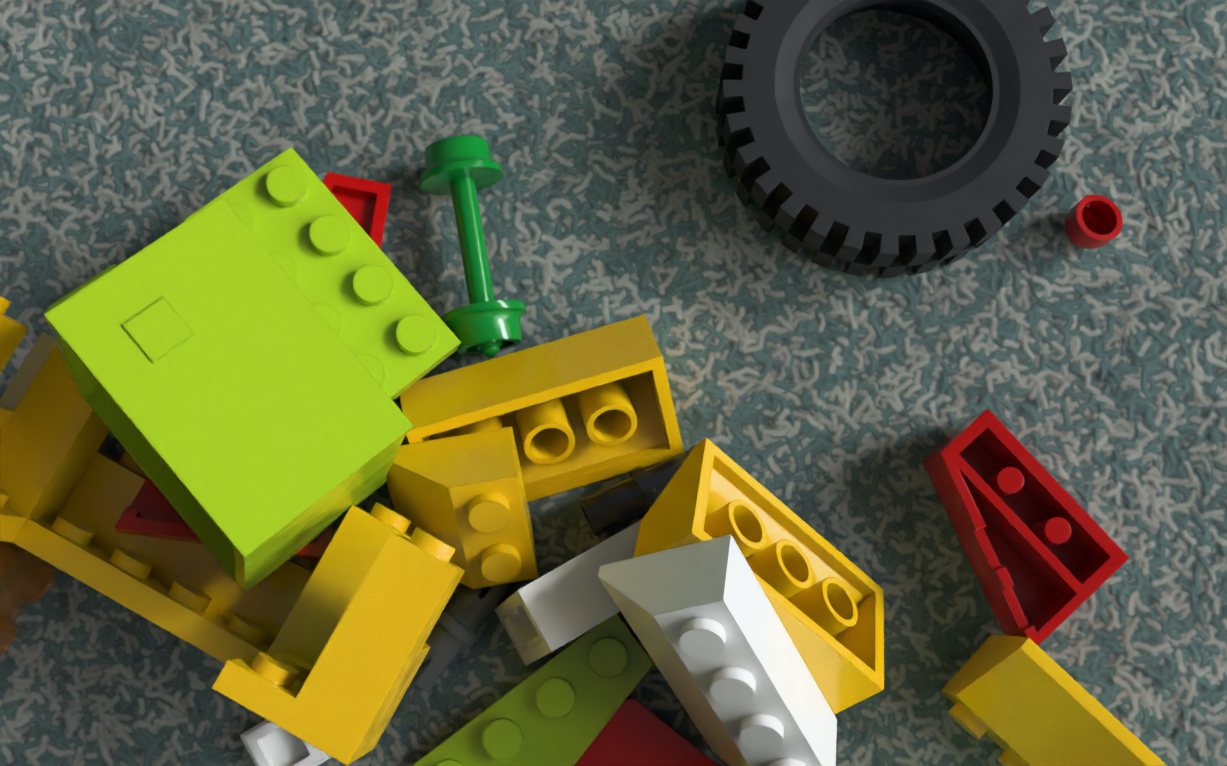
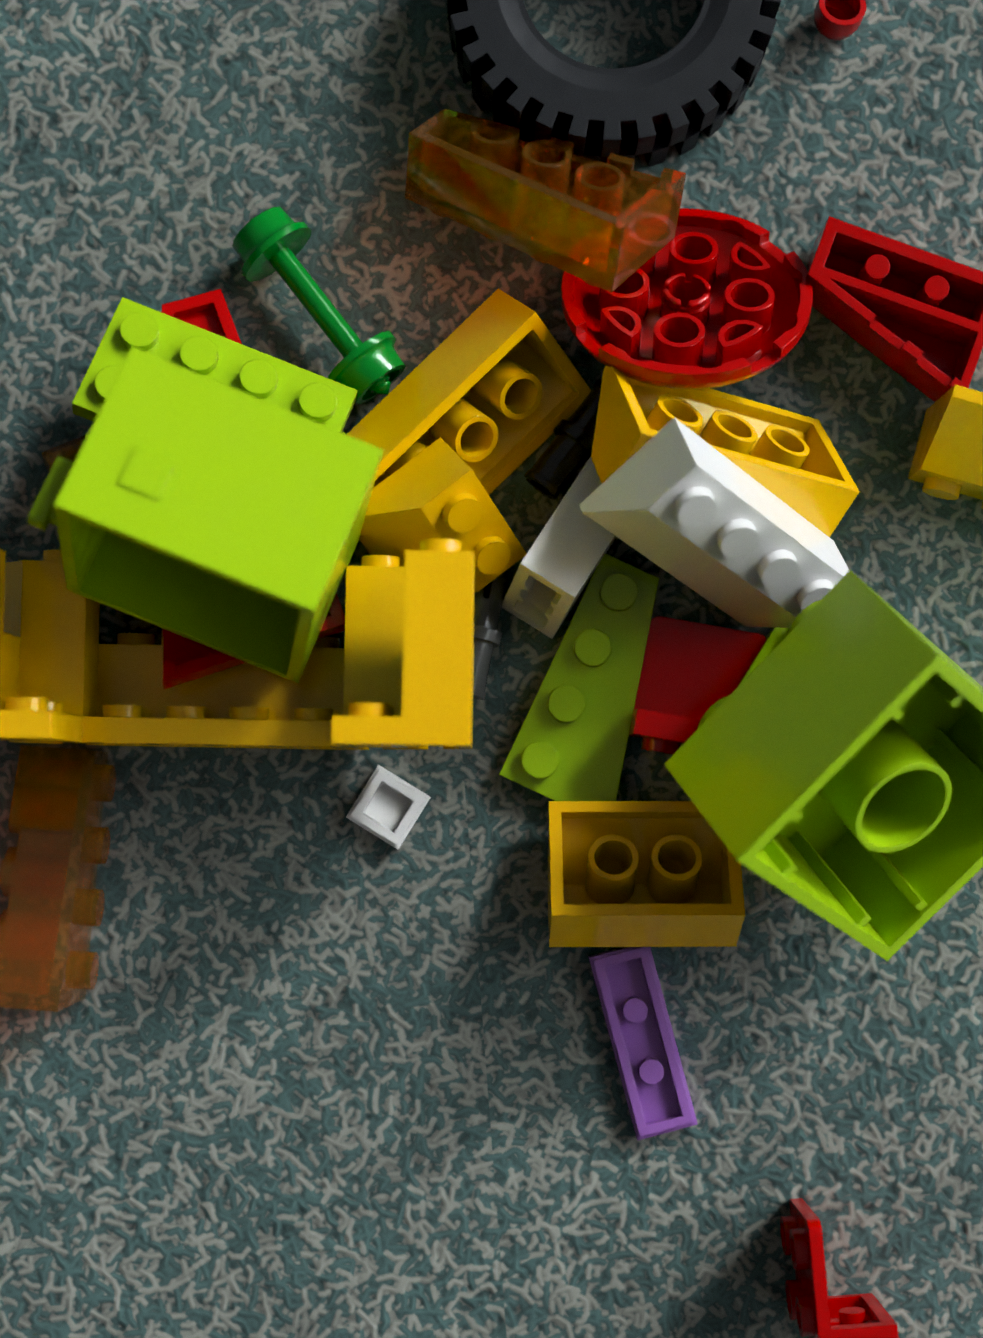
camera: 25 degrees left, 5 degrees up
(727, 255) = (543, 198): none -> clear orange wedge
(812, 417) = (699, 310): none -> red brick

